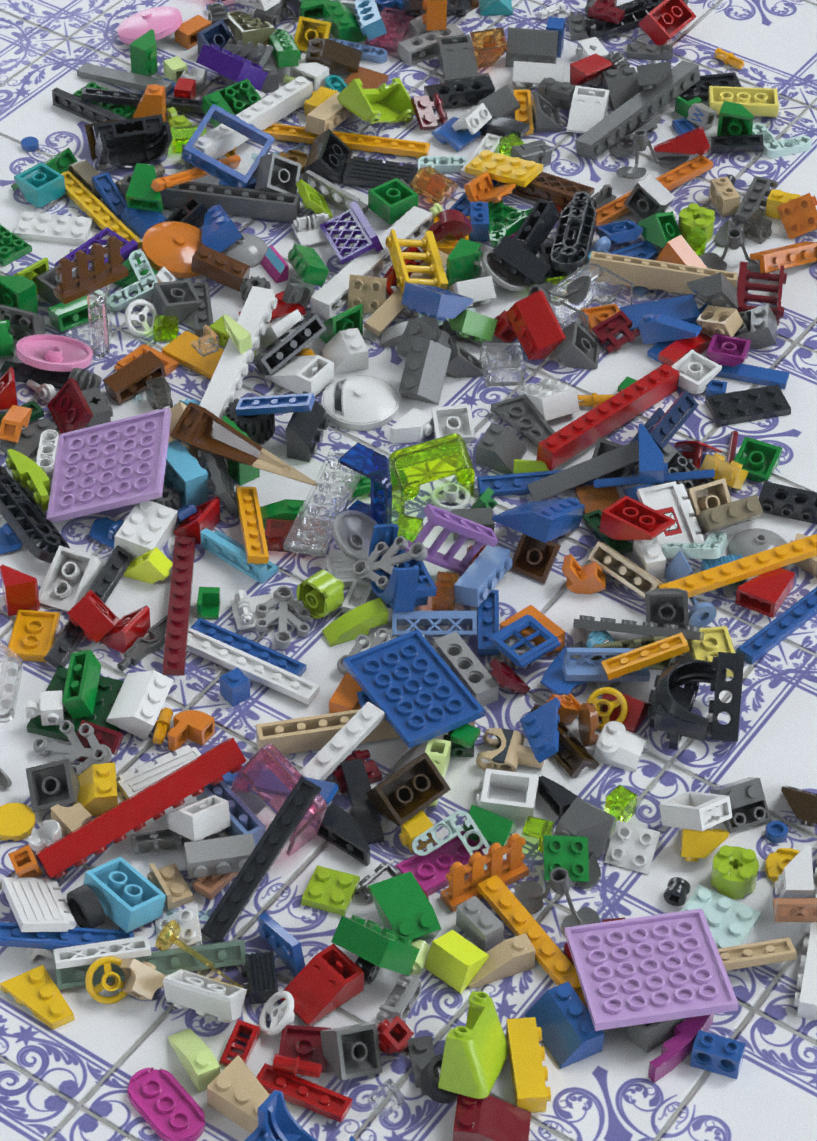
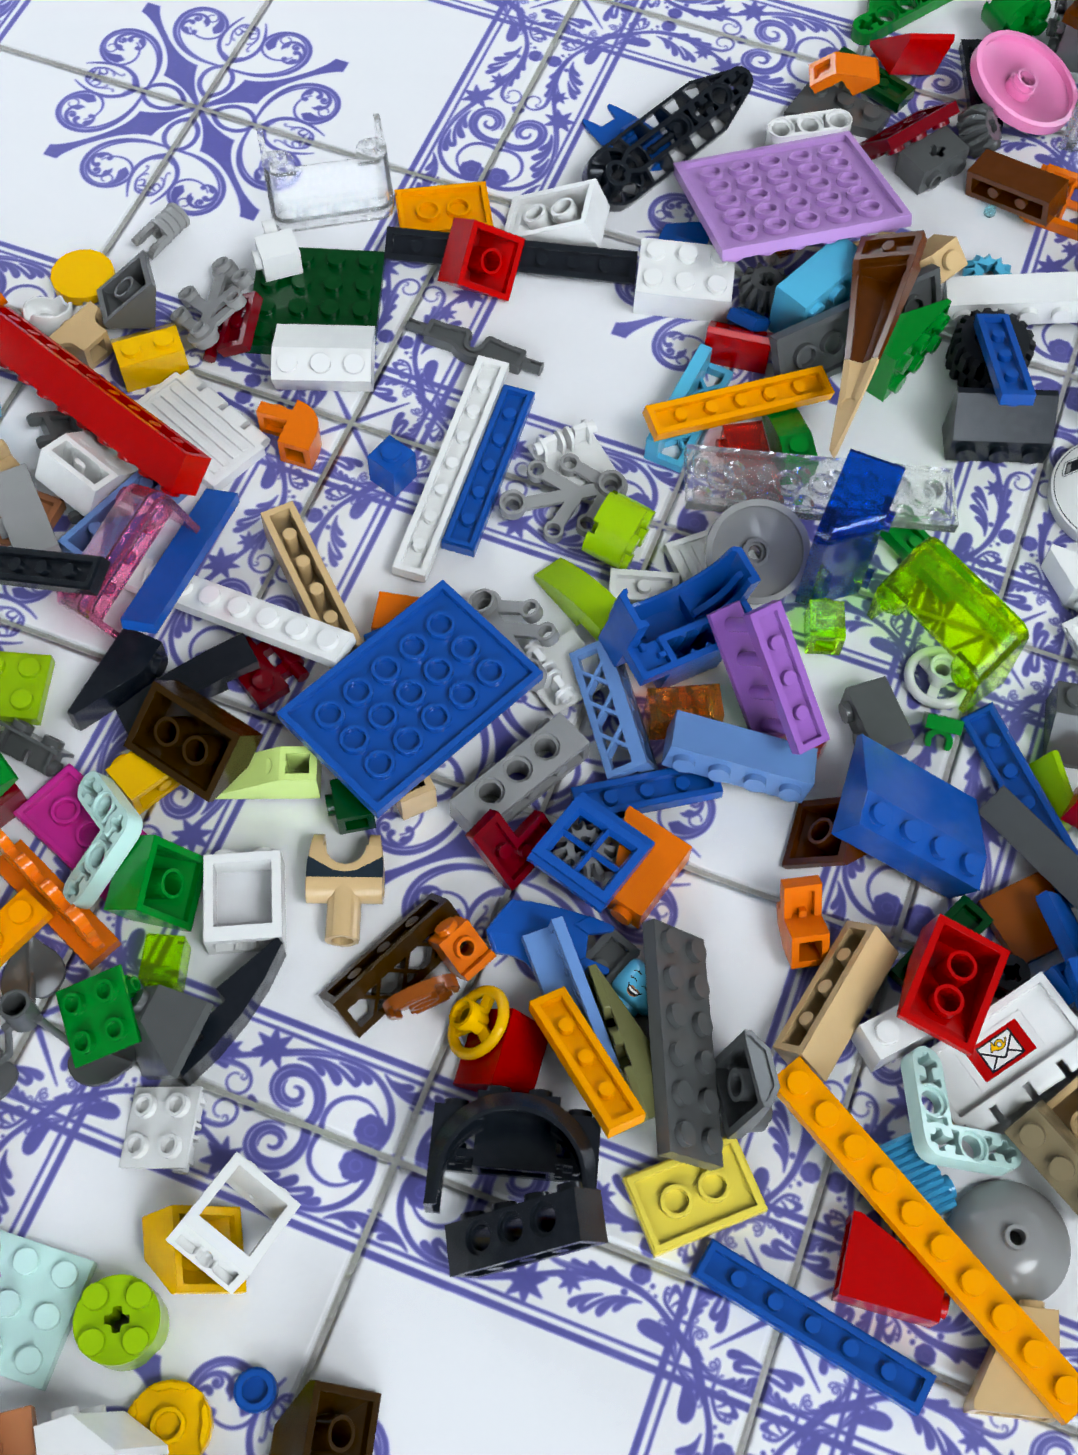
camera: 75 degrees right, 20 degrees up
(19, 590) = (500, 158): red slope -> none
(29, 476) = (752, 127): lime slope -> none
(45, 391) = (948, 95): white plate -> none
(81, 684) = (324, 273): green brick -> none
(128, 630) = (477, 312): red slope -> none
(149, 567) = (614, 307): neon yellow slope -> none
(158, 393) = (998, 227): clear smoke brick -> none
(162, 725) = (288, 396): light orange axle -> none
(179, 606) = (540, 357): dark red plate -> none
(208, 603) = (564, 394): green panel -> none
(365, 569) = (670, 569): light grey plant -> none
(465, 735) = (338, 803): green tile -> none
(542, 731) = (382, 915): blue wing -> none
(619, 747) = (405, 1065): white slope -> none
(621, 803) = (253, 1088): clear neon green brick -> none
(677, 891) = (66, 1223): black wheel -> none
(701, 613) = (858, 1098): medium blue piece -> none
(747, 803) = (300, 1307): dark grey slope -> none

